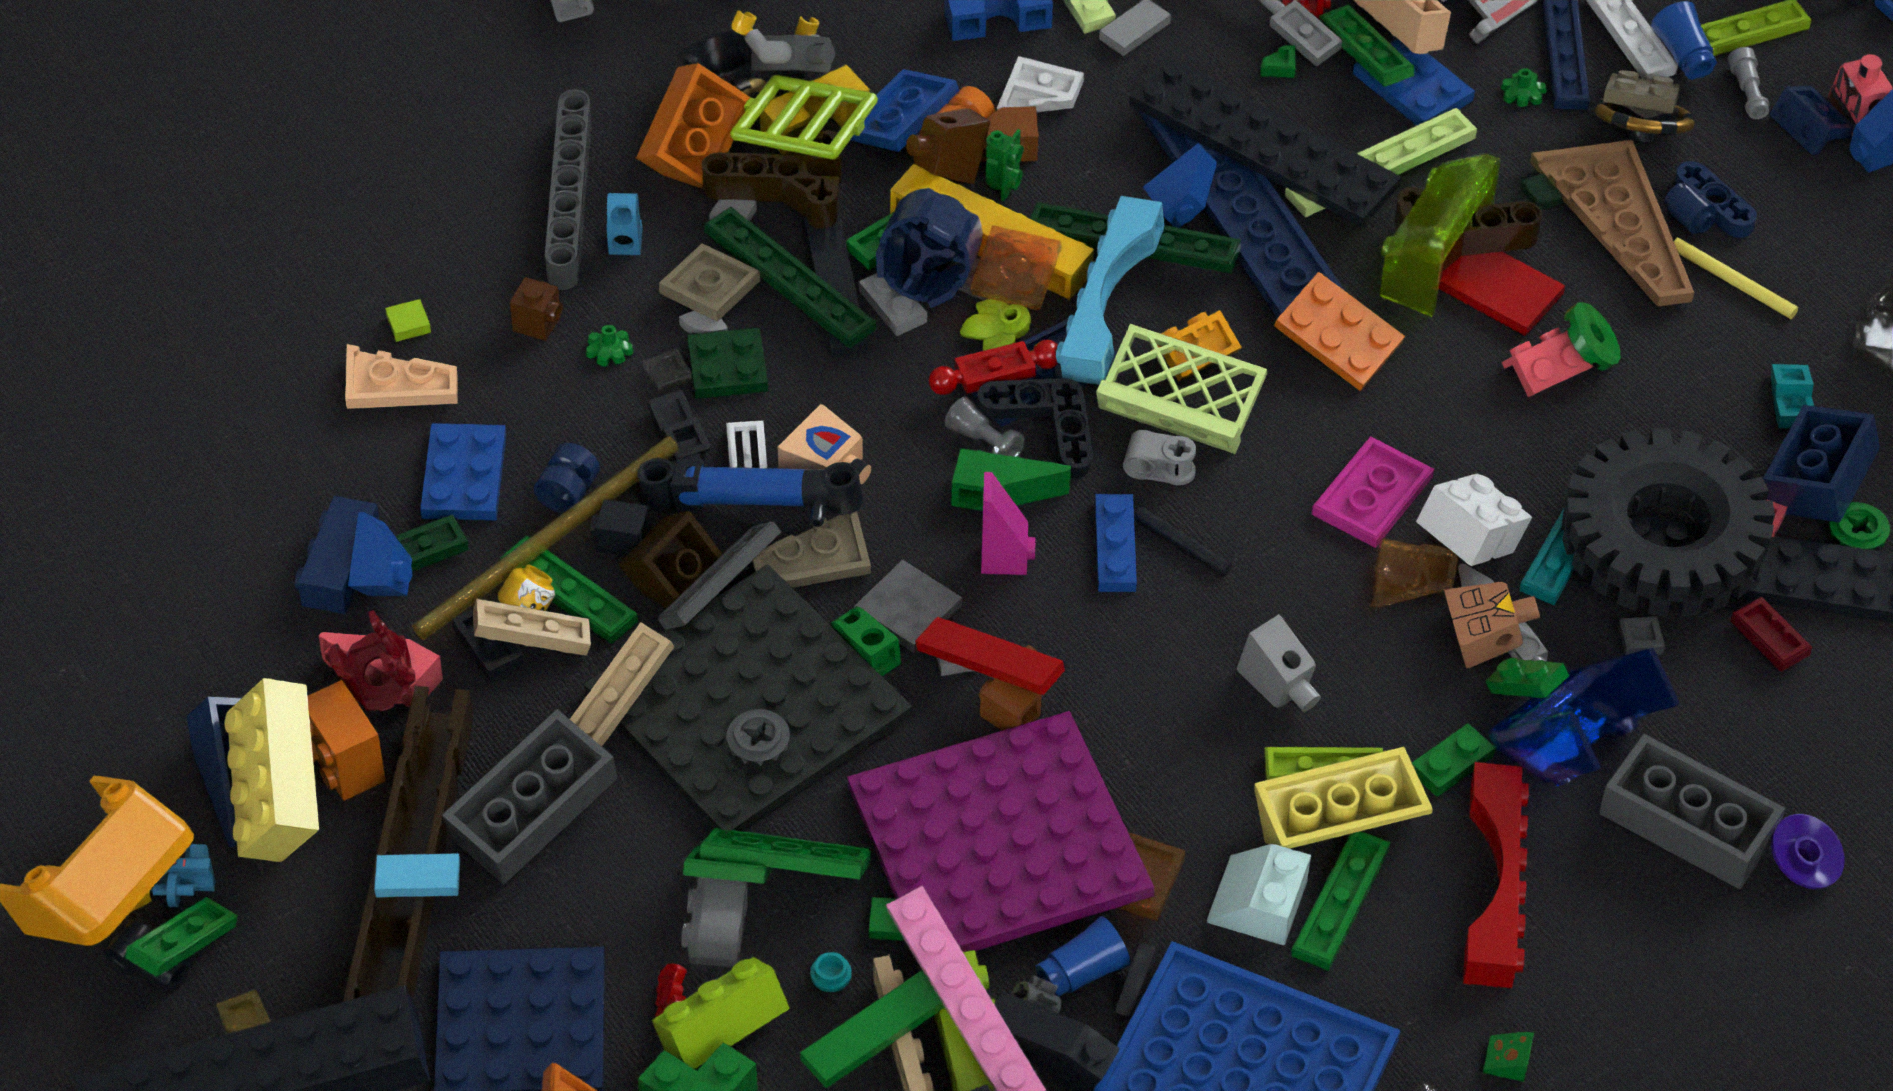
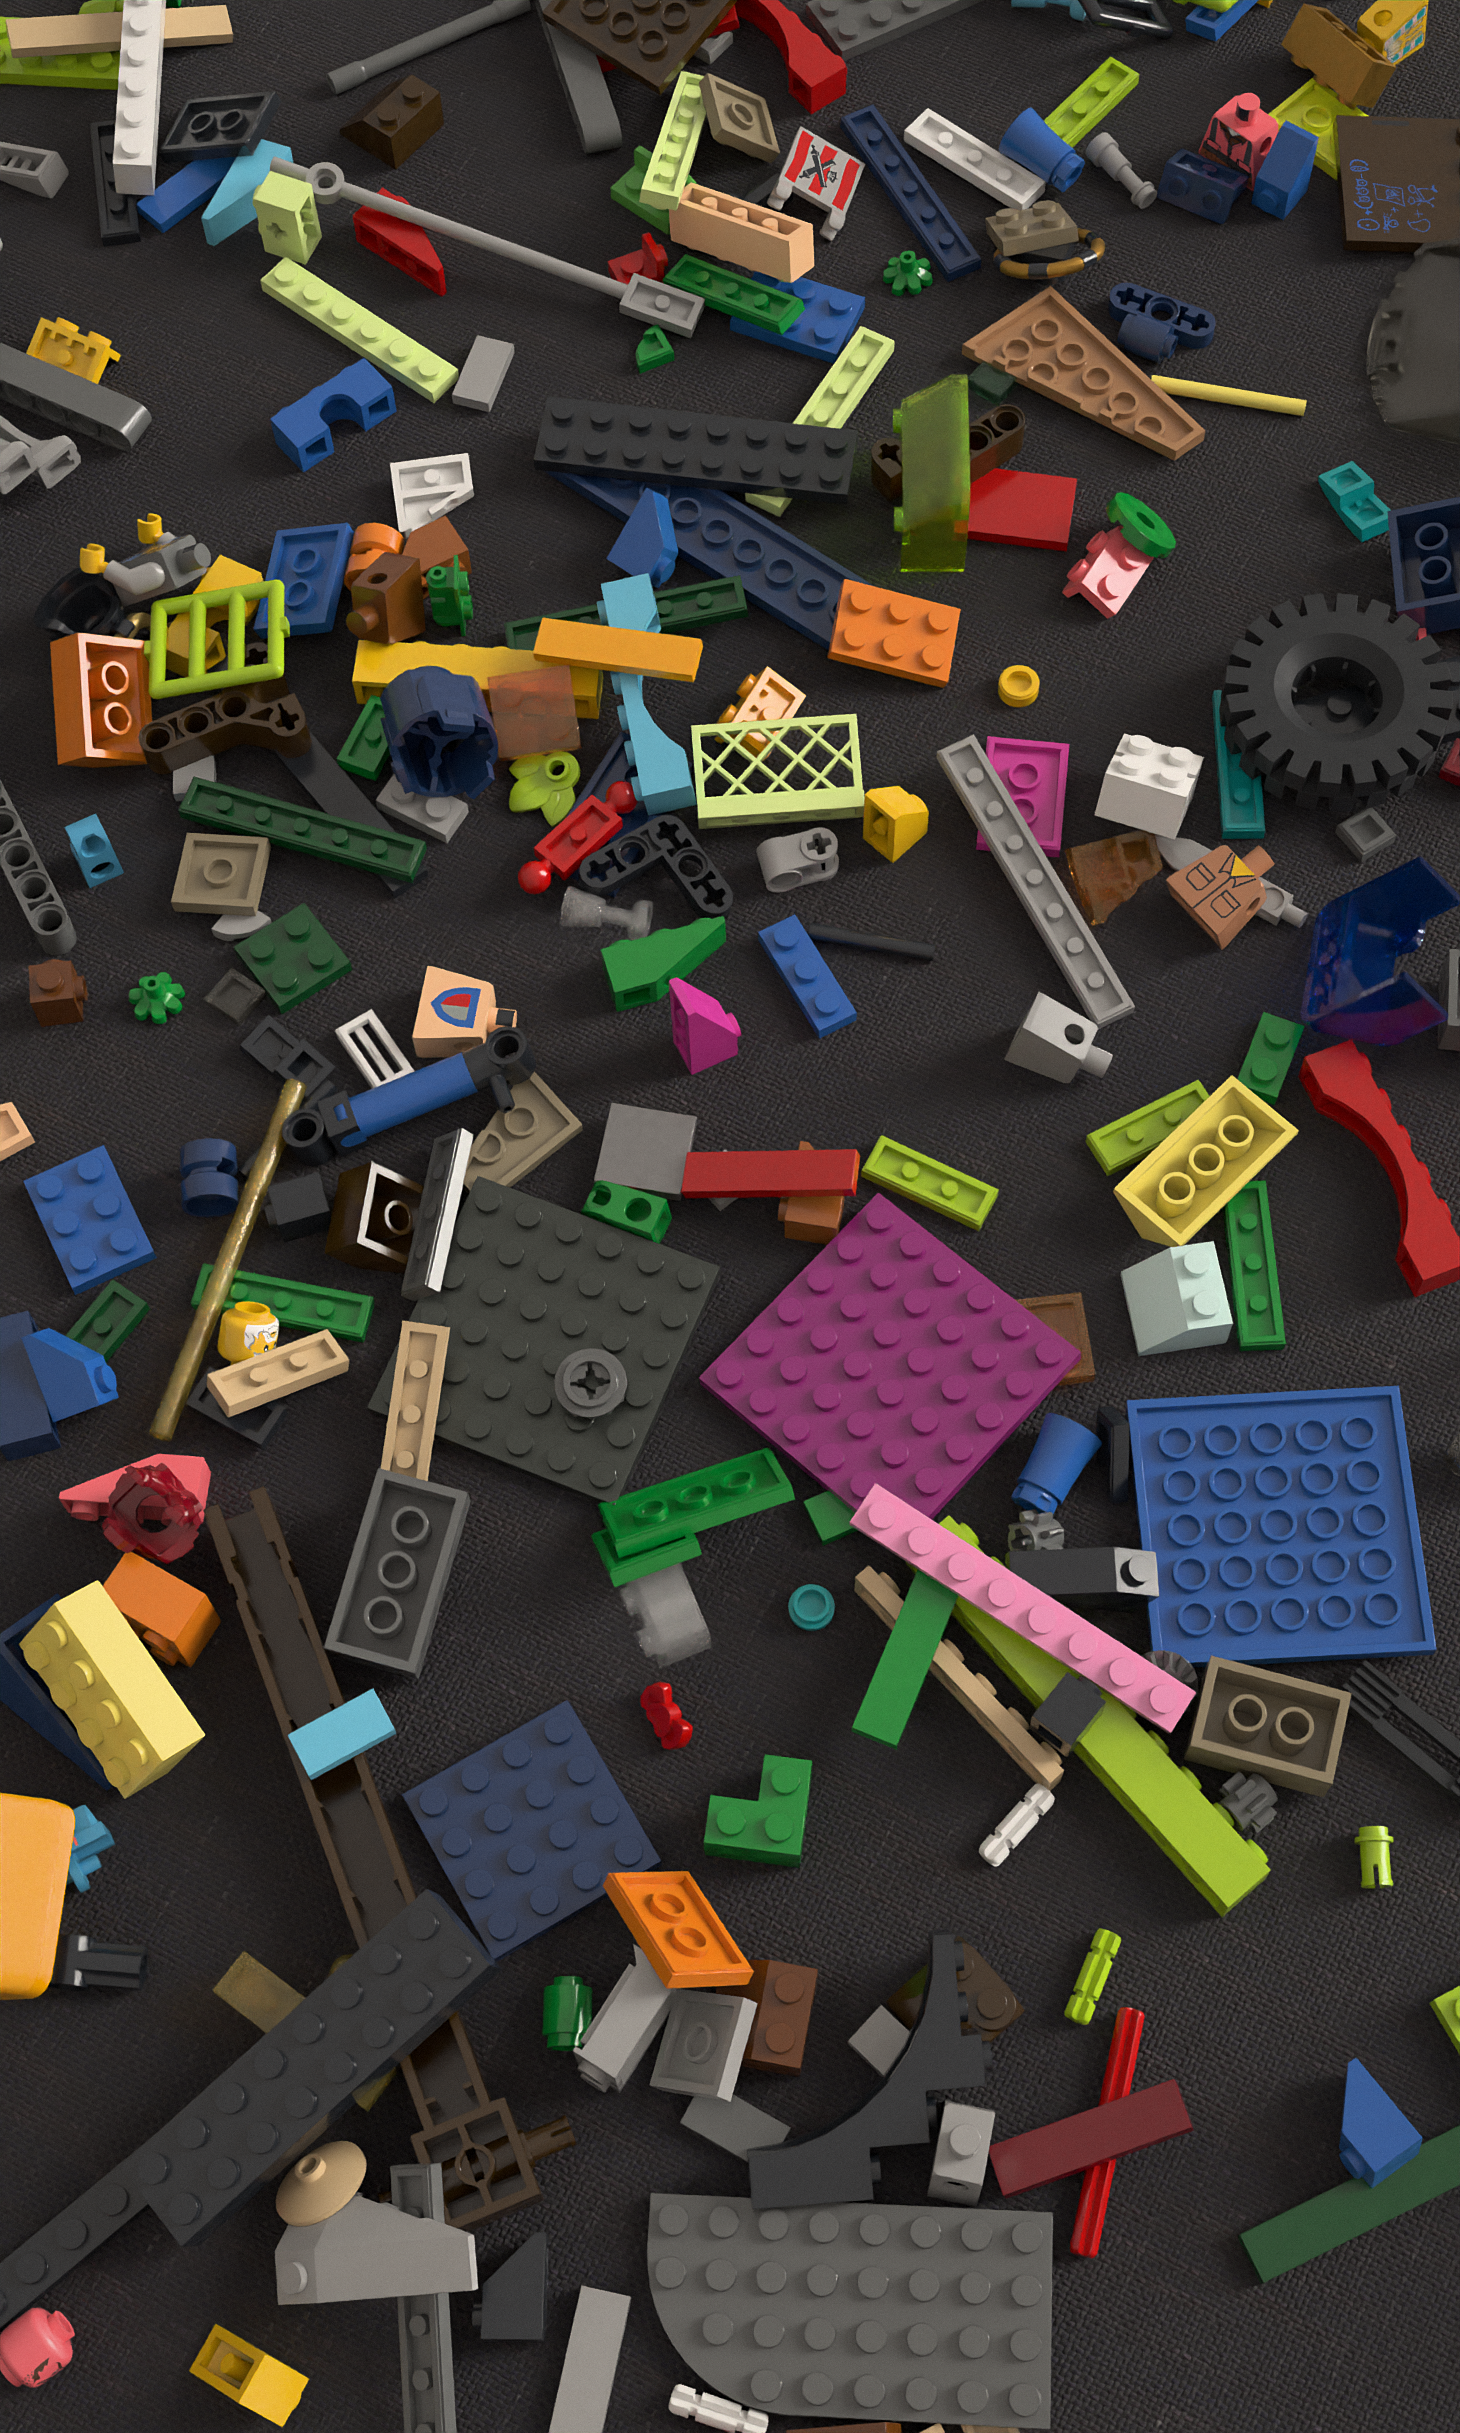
camera: 25 degrees left, 15 degrees up
(181, 936) = (122, 1927): green tile -> none
(721, 1012) = (737, 1718): lime brick -> none
(1103, 244) = (618, 649): none -> light orange tile
(1118, 727) = (929, 1183): none -> lime tile
(1252, 459) = (893, 820): none -> yellow slope
(1340, 553) = (1035, 882): none -> light grey tile
(1421, 413) = (1018, 686): none -> yellow tile
(1526, 678) = (1296, 937): green plate -> none

